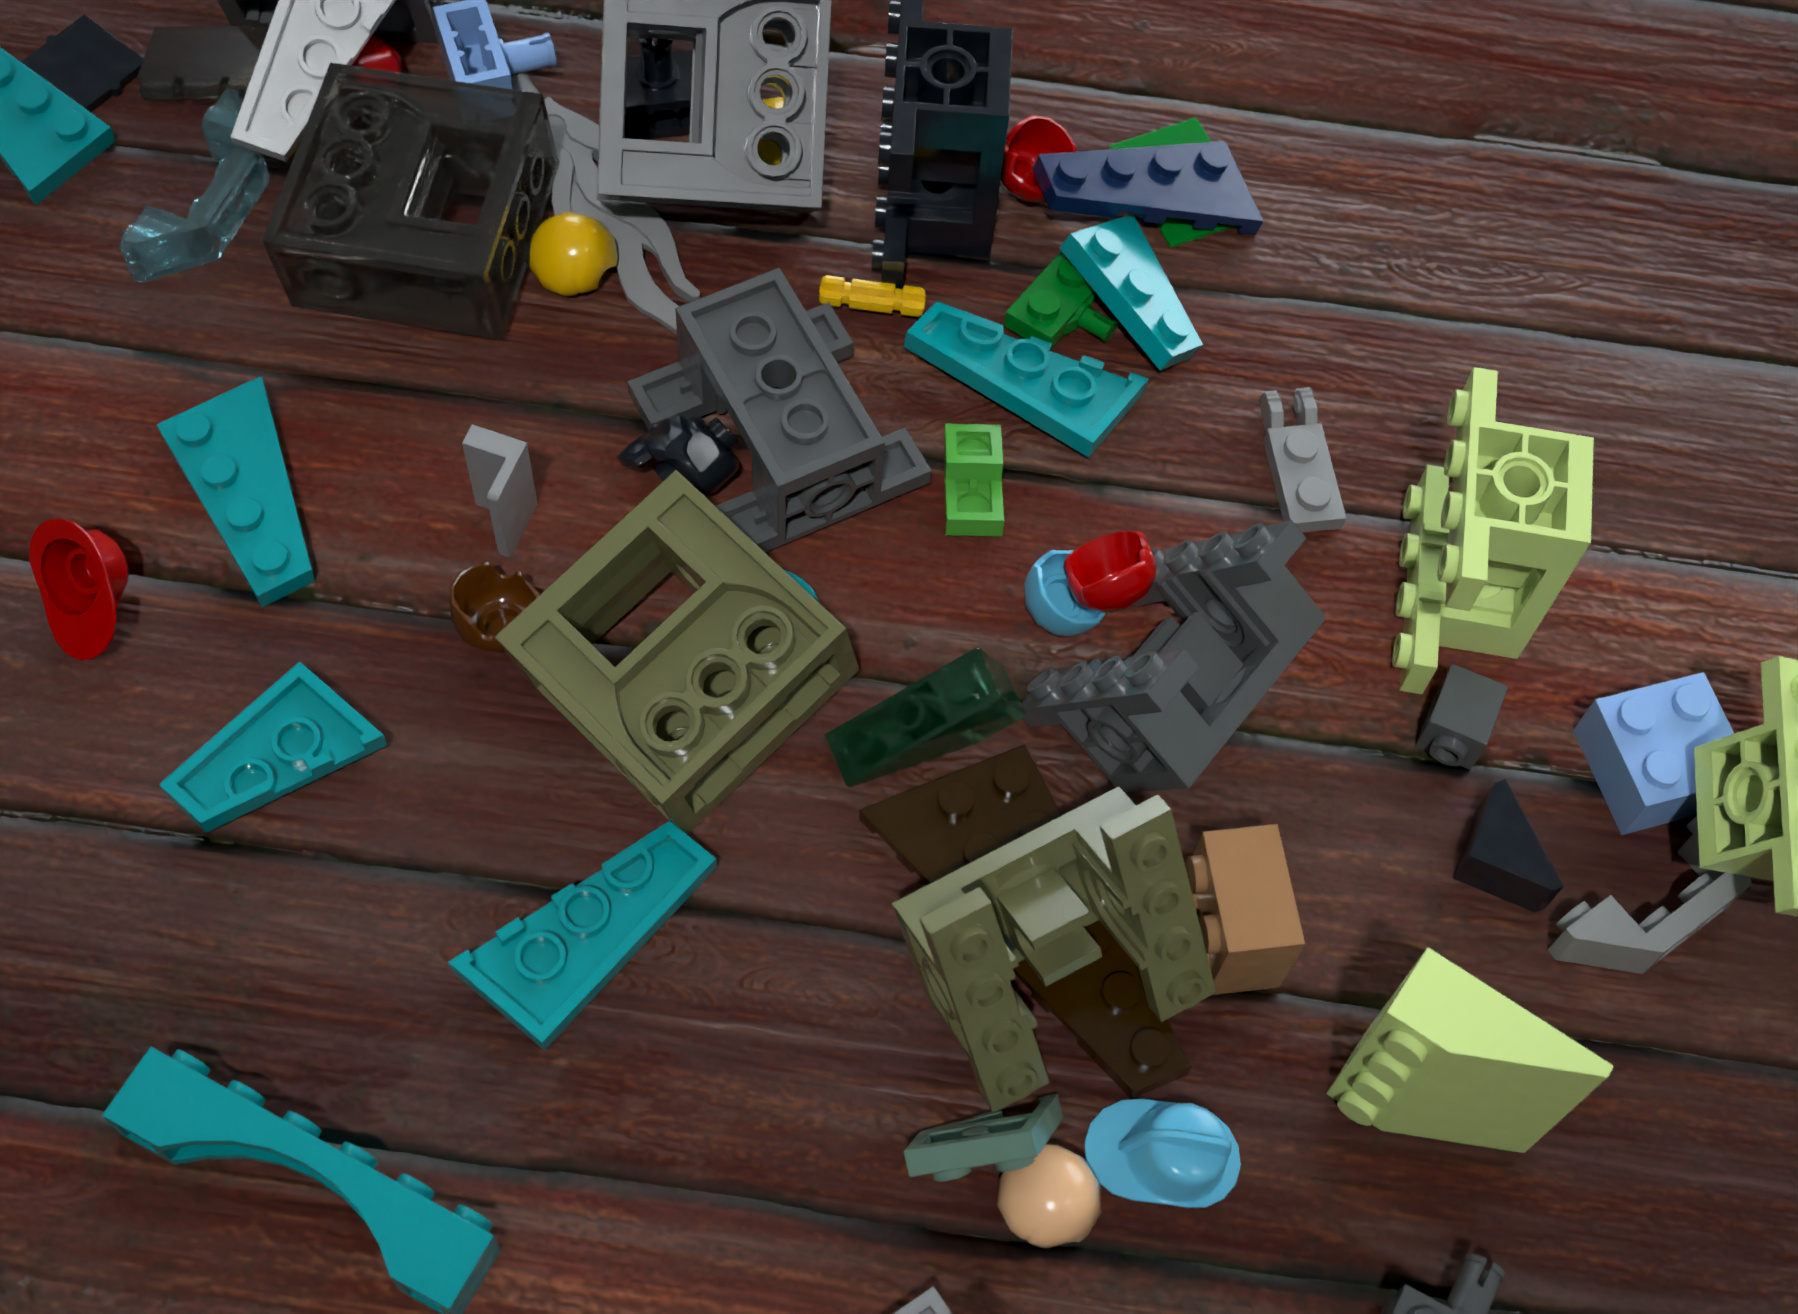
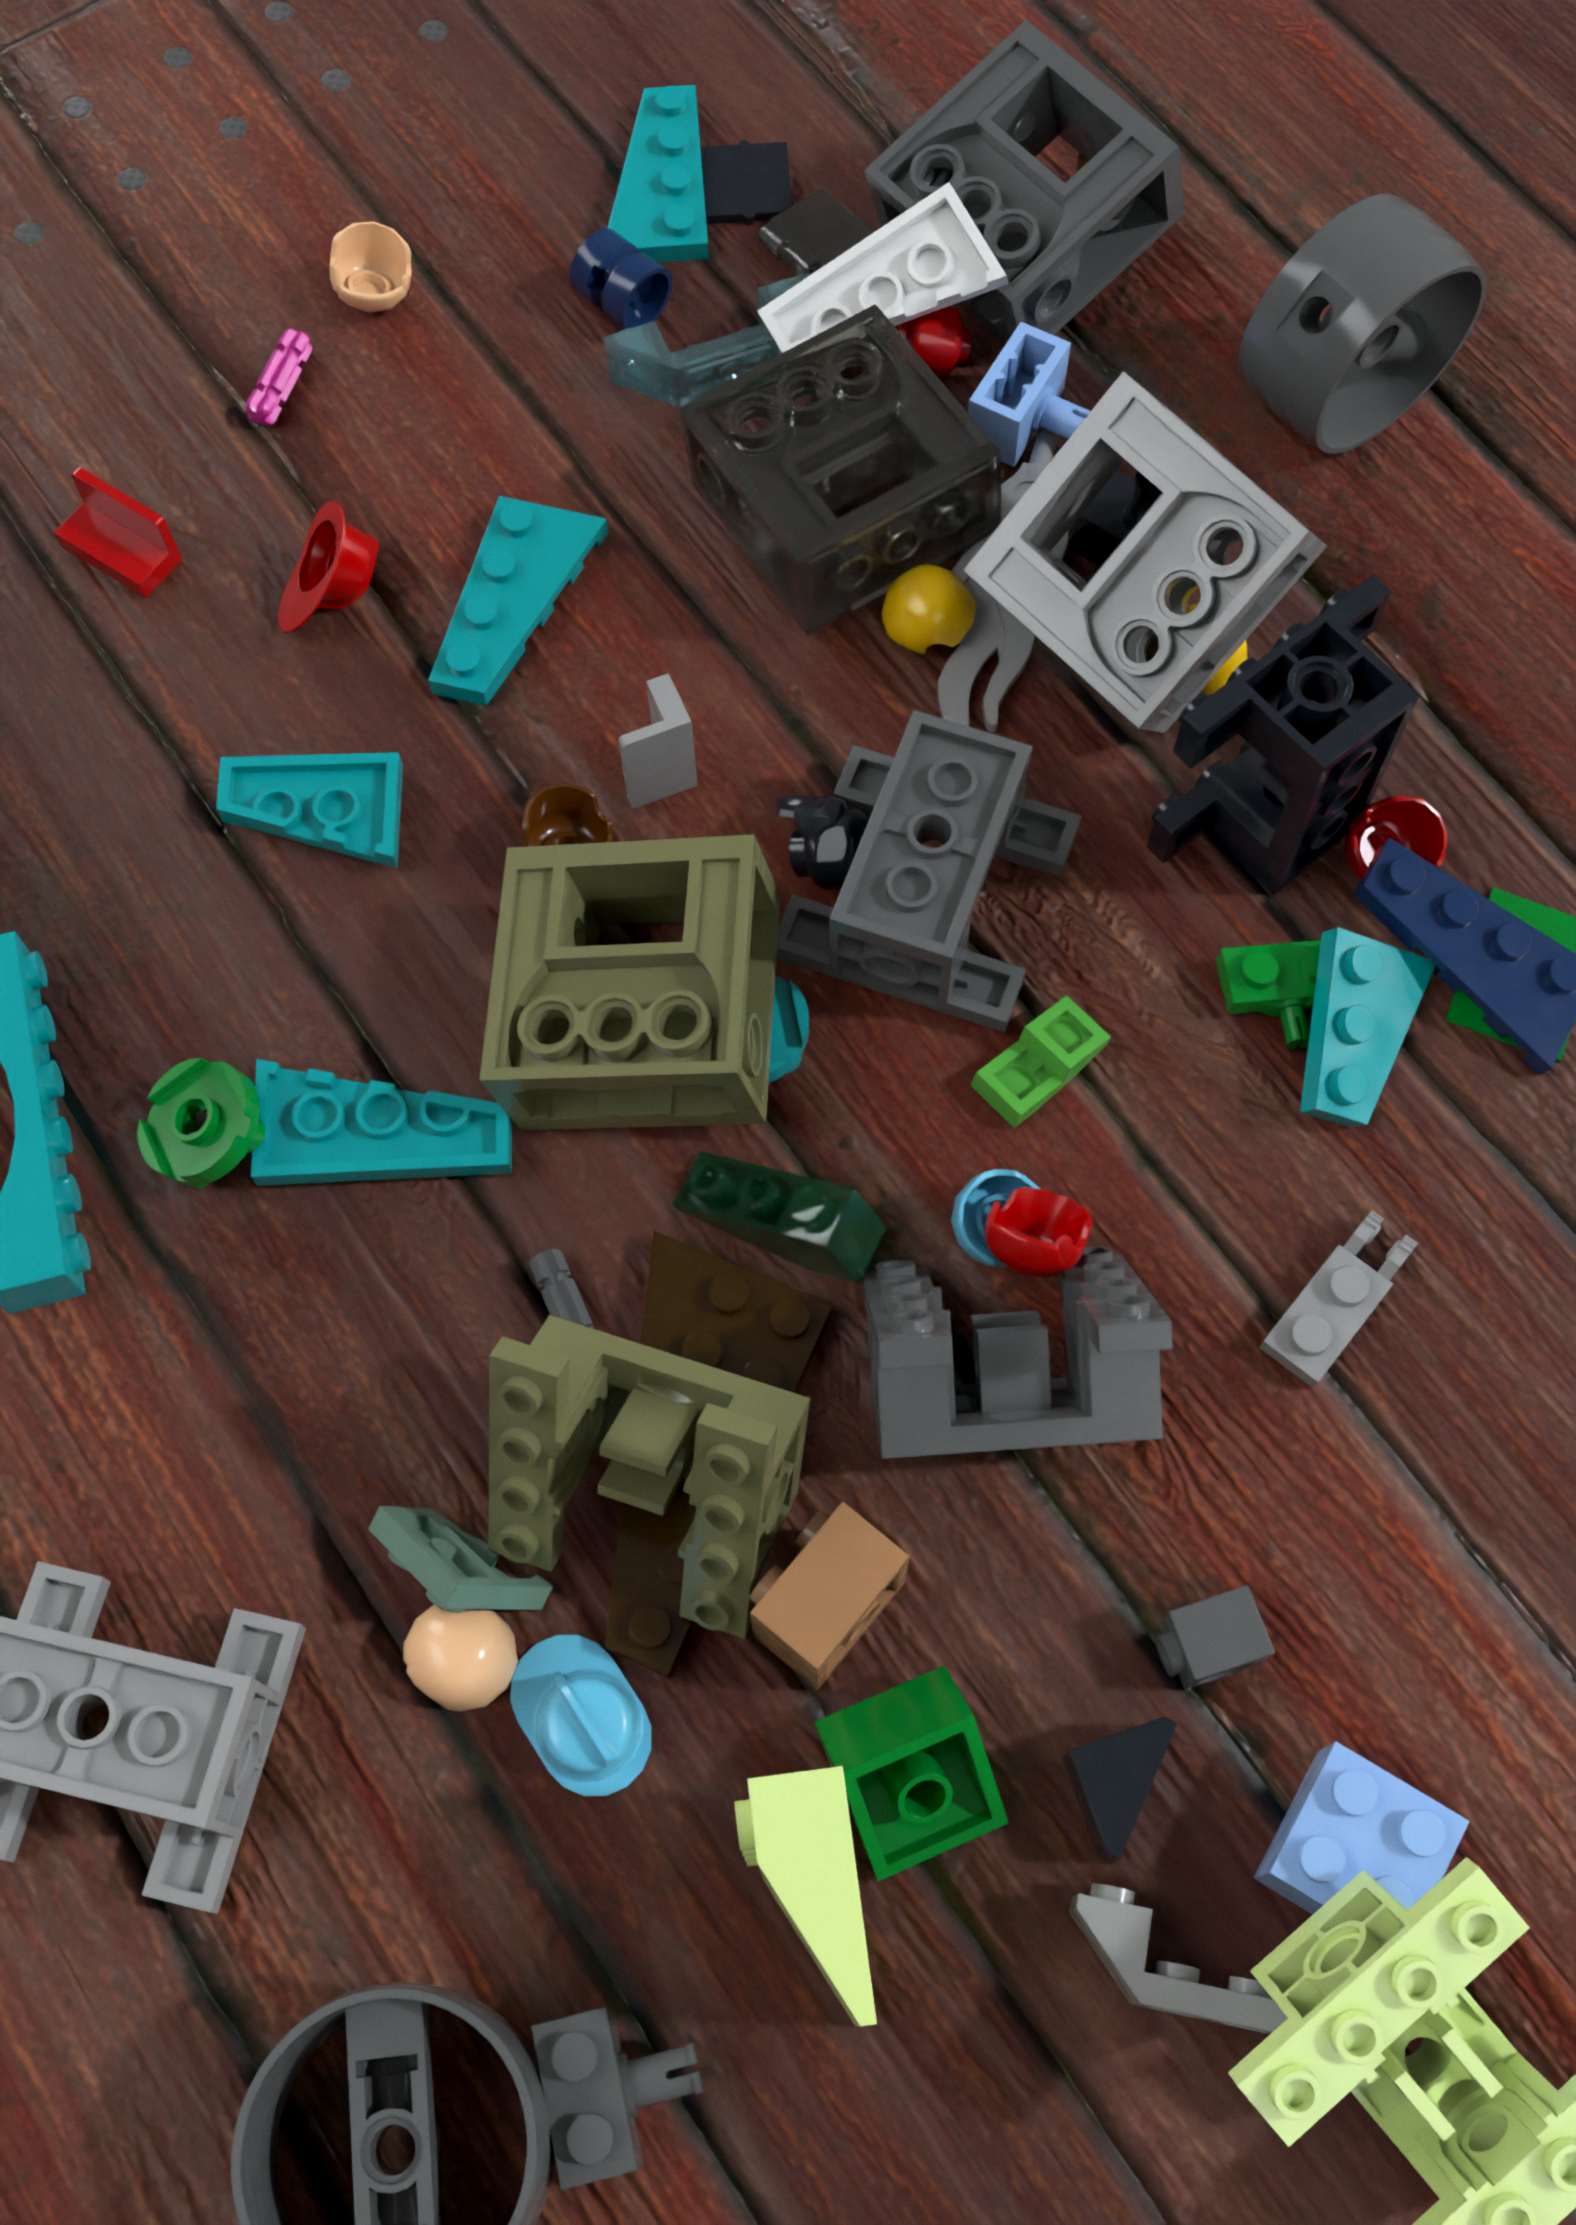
camera: 55 degrees right, 5 degrees up
(68, 200) = (620, 279): none -> dark blue wheel
(429, 1064) = (226, 1135): none -> green plate
(852, 914) = (559, 1290): none -> dark grey axle
(872, 296) = (1130, 842): yellow axle -> none
(1051, 391) = (1181, 1023): teal wing -> none
(1375, 945) = (913, 1772): none -> green slope
(1479, 555) = (1355, 1520): yellowish green piece -> none

